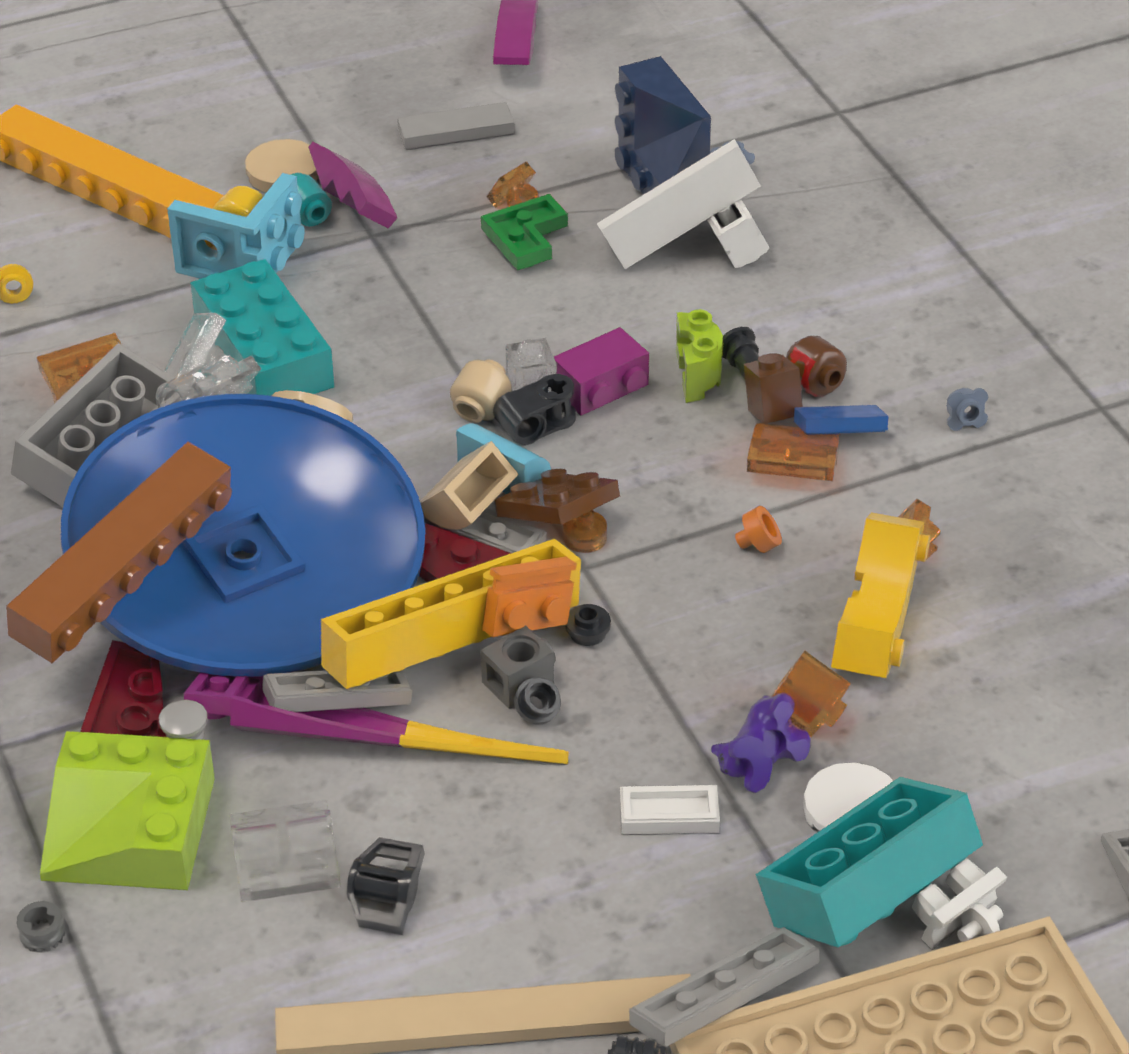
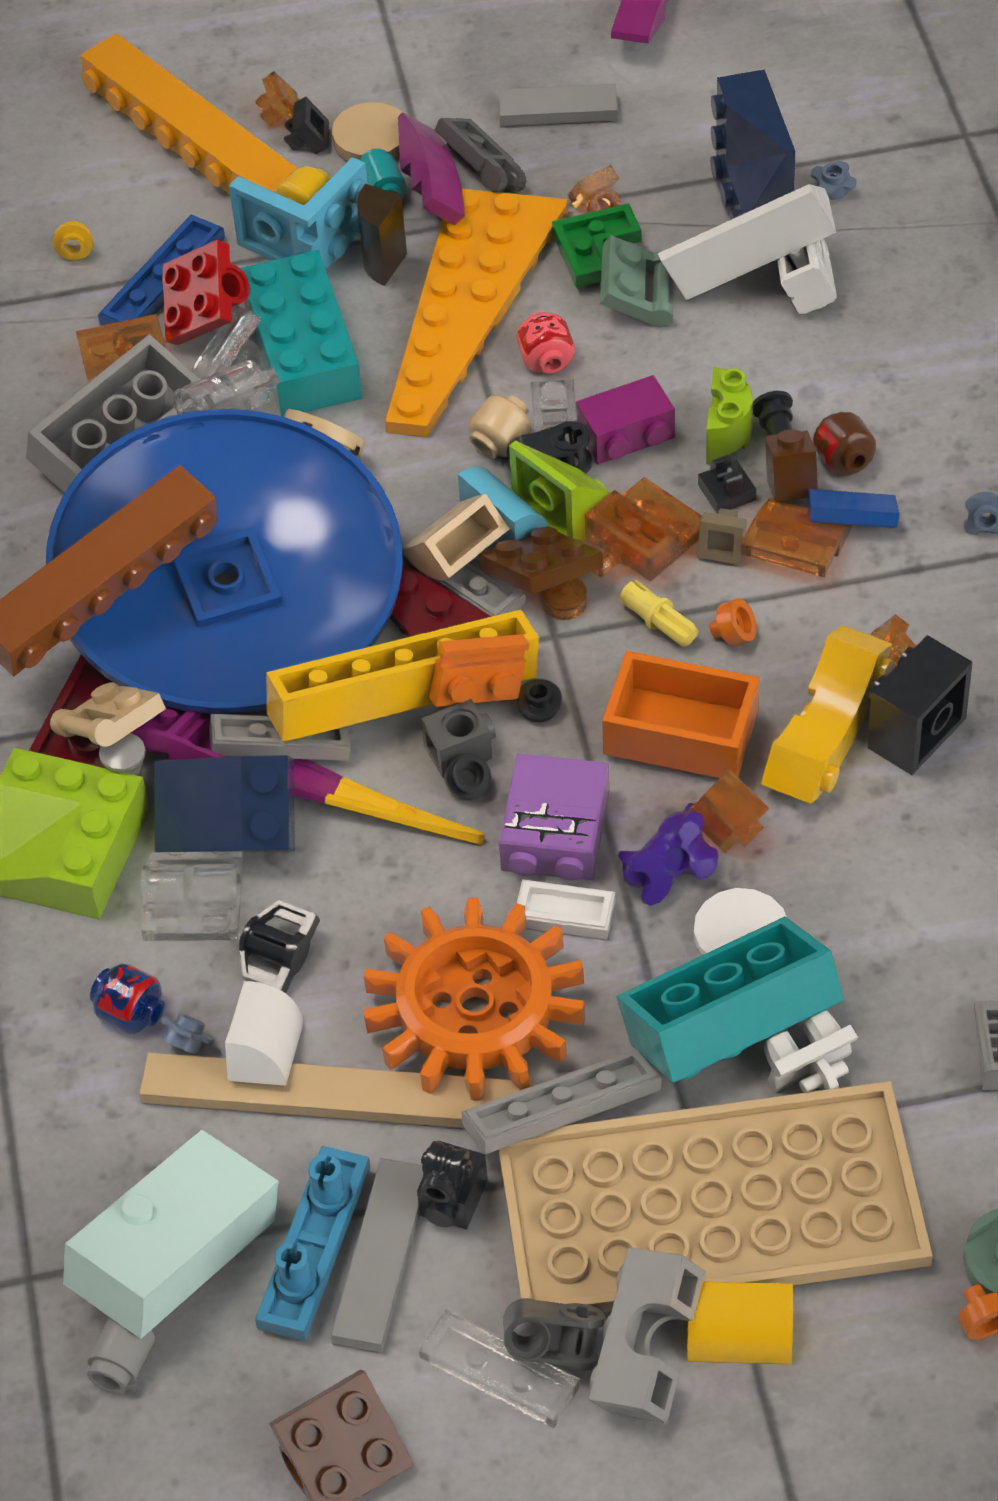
camera: 15 degrees right, 10 degrees up
(111, 299) = (144, 291): none -> blue tile
(158, 305) = (201, 292): none -> red plate
(159, 685) = (108, 714): none -> tan plate
(187, 148) = (277, 100): none -> clear orange tile
(220, 166) = (307, 127): none -> black tile
(240, 958) = (127, 998): none -> clear blue head
(300, 755) = (225, 804): none -> dark blue slope
(312, 982) = (185, 1033): none -> sand blue plate
(320, 239) = (381, 232): none -> dark brown brick
(397, 970) = (262, 1035): none -> white brick
(399, 172) = (482, 154): none -> dark grey hinge
(412, 289) = (464, 296): none -> light orange wing
(503, 316) = (543, 341): none -> coral head
(556, 434) = (554, 489): none -> lime slope
(565, 257) = (624, 282): none -> sand green plate
(637, 724) = (554, 817): none -> medium lavender brick
(642, 881) = (447, 971): none -> orange gear
(647, 461) = (642, 529): none -> clear orange plate
(683, 532) = (658, 613): none -> light yellow axle
(712, 415) = (726, 484): none -> black tile
(725, 458) = (721, 536): none -> dark tan tile
(736, 614) = (680, 715): none -> orange piece
(964, 572) = (918, 704): none -> black brick

